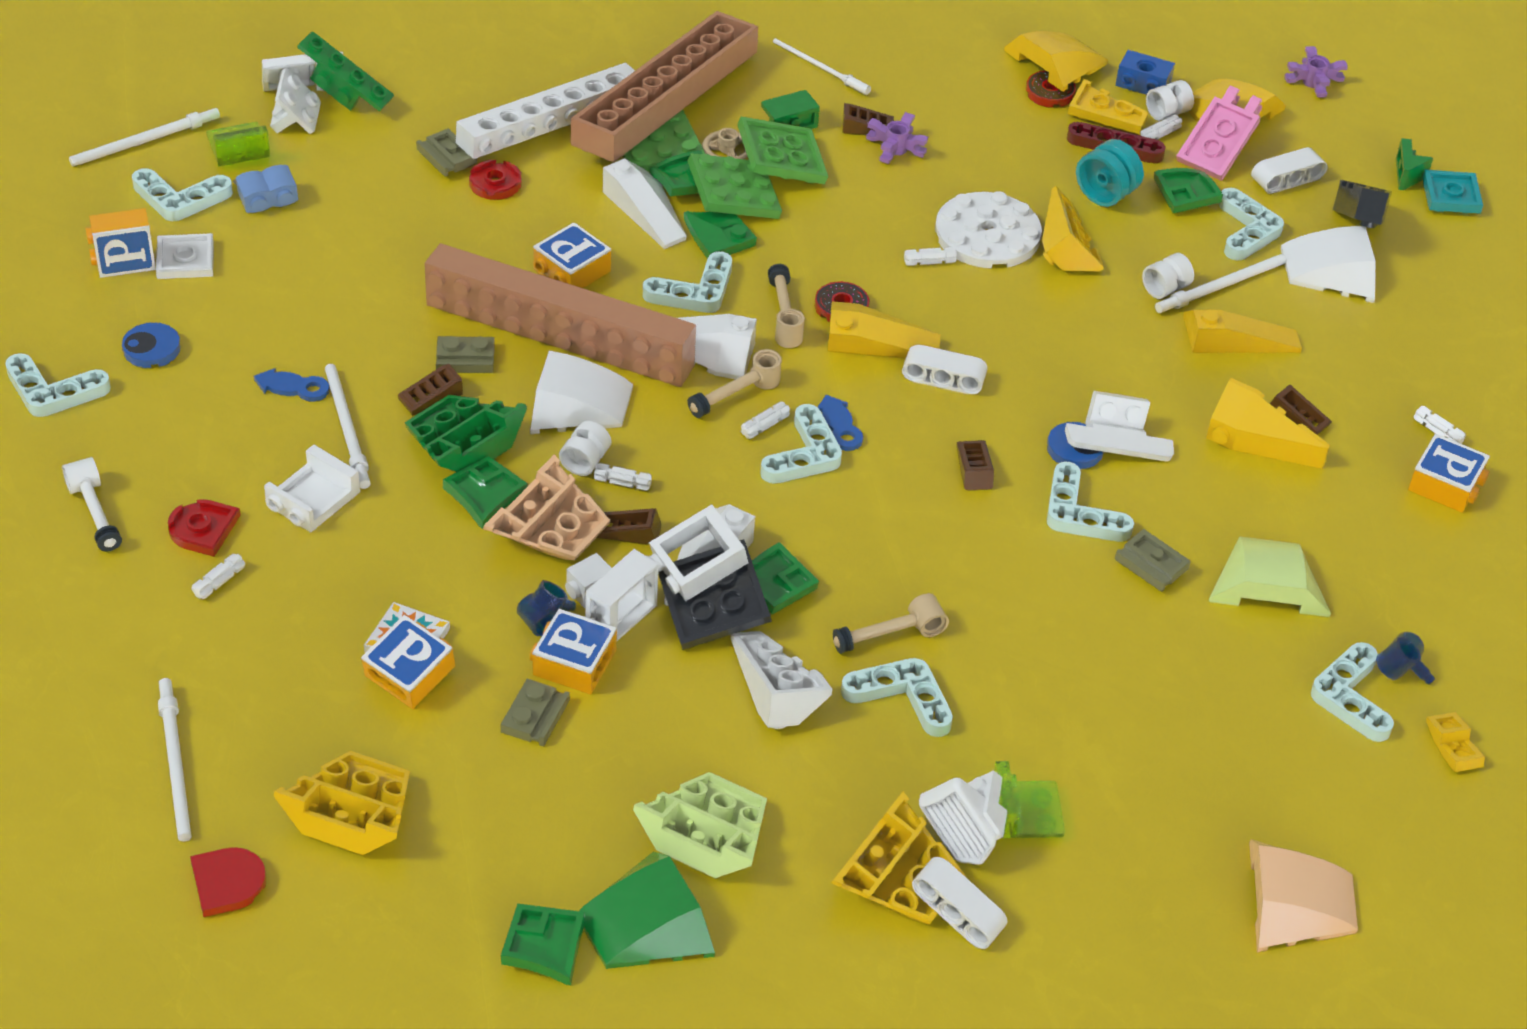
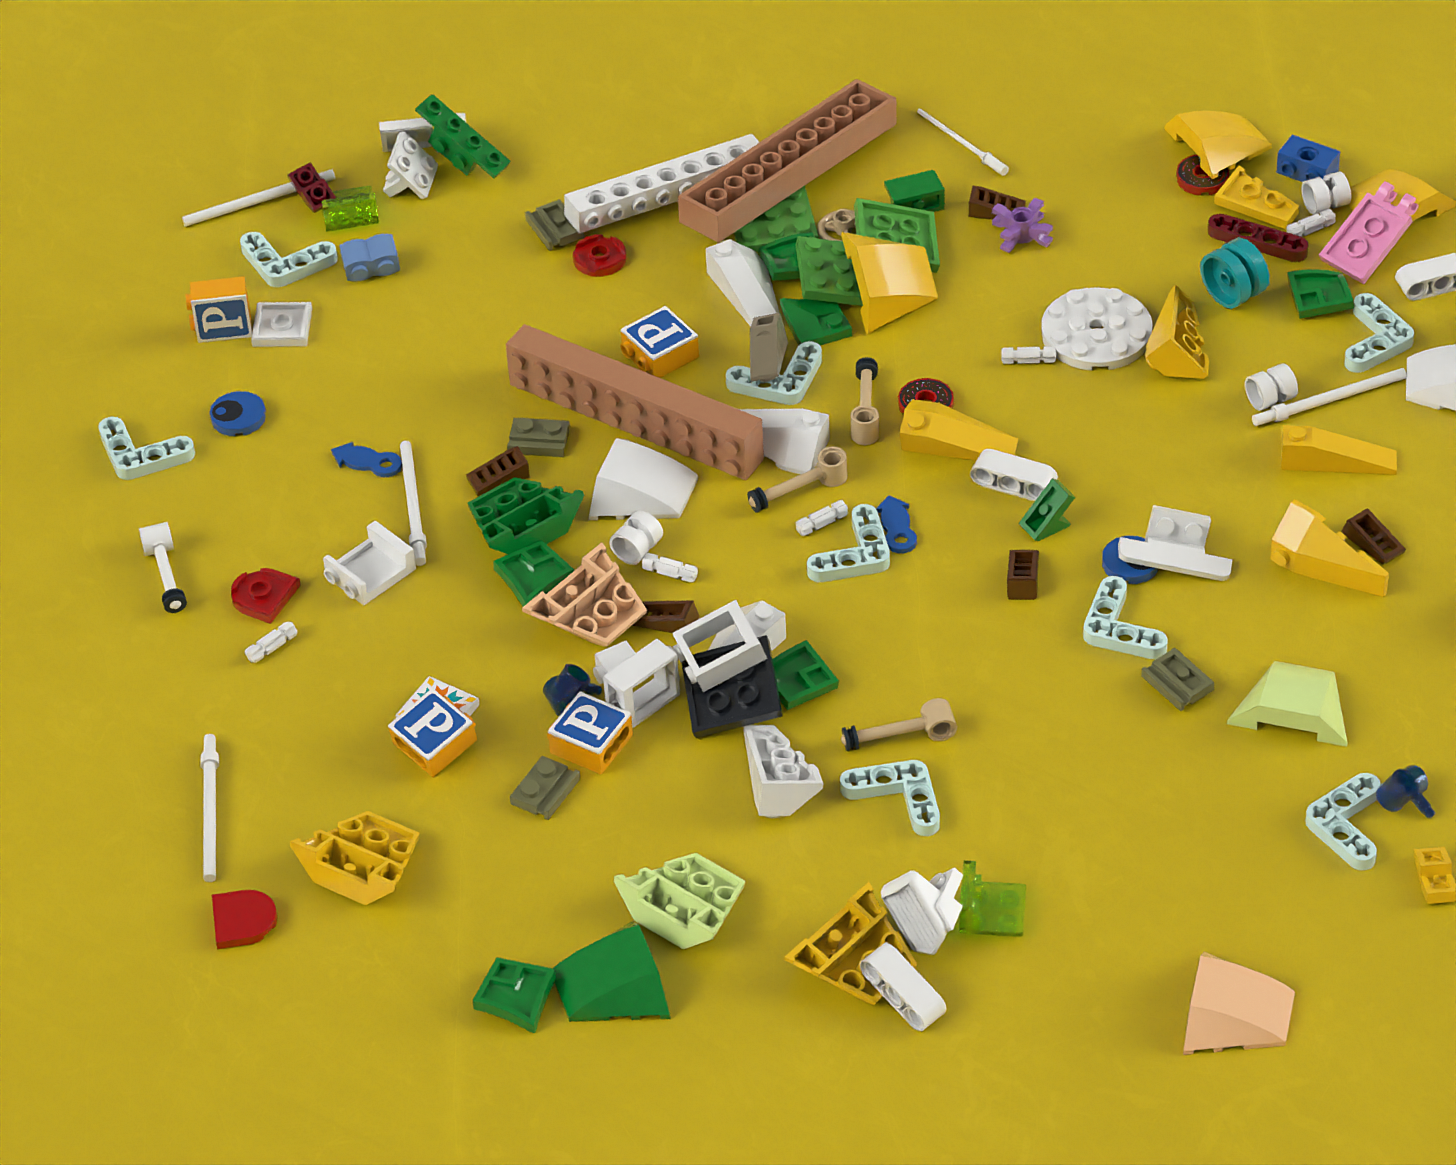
camera: 15 degrees right, 0 degrees up
(197, 124) = (310, 186): none -> dark red slope
(681, 258) = (767, 347): none -> dark tan slope
(786, 187) = (890, 278): none -> yellow wedge
(986, 402) = (1046, 513): none -> green slope

